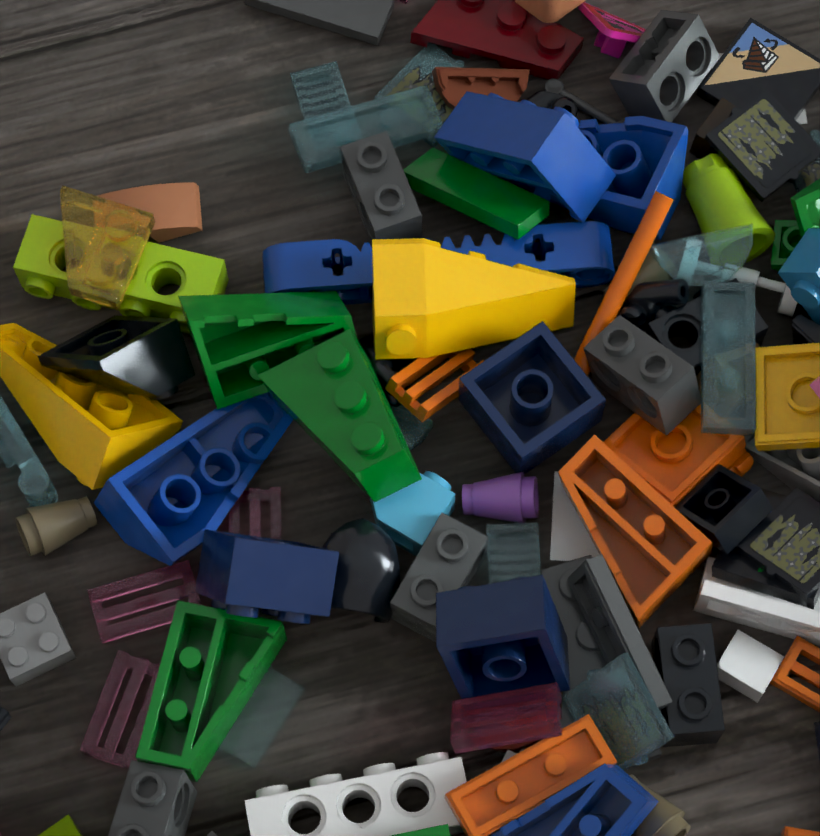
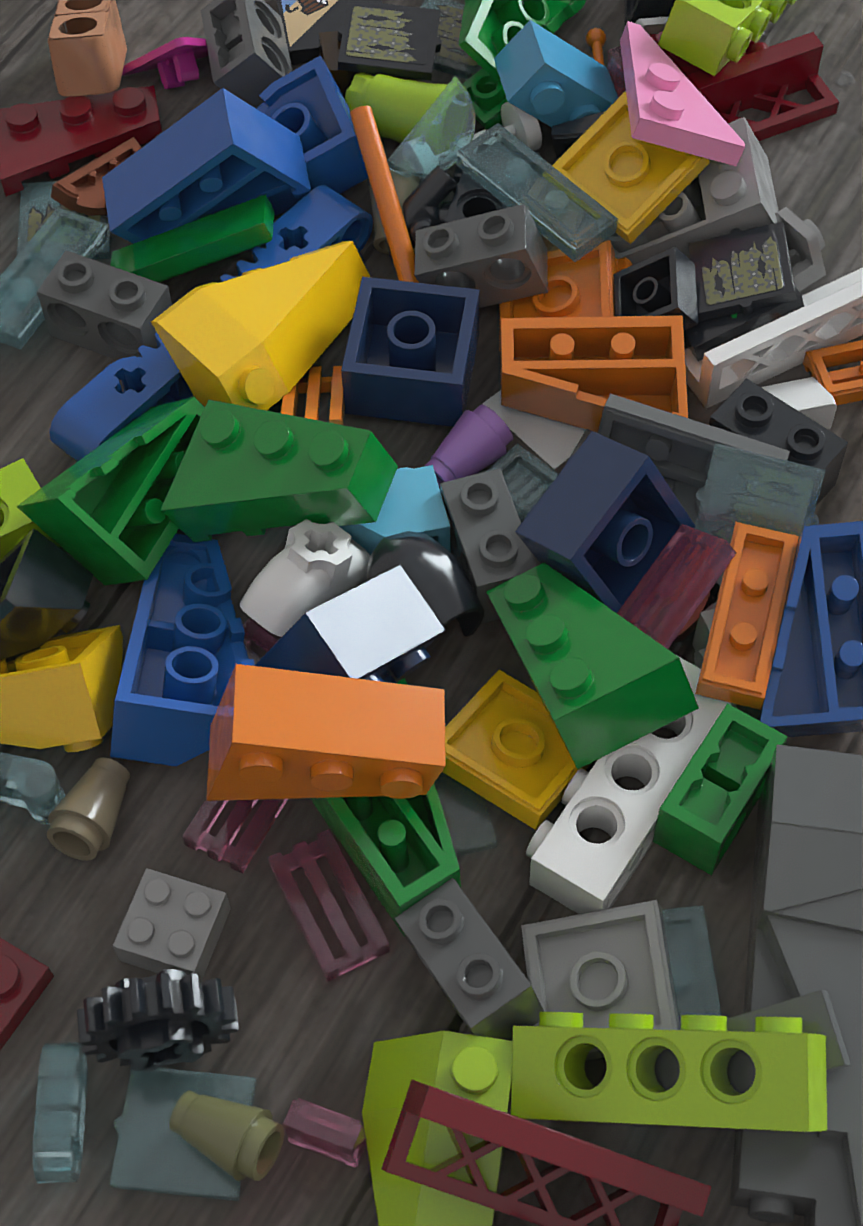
camera: 45 degrees left, 10 degrees down
(185, 624) = (323, 737): none -> orange wedge
(306, 499) = (311, 570): none -> white piece
(320, 722) = (509, 750): none -> yellow plate
(391, 714) = (590, 665): none -> green wedge

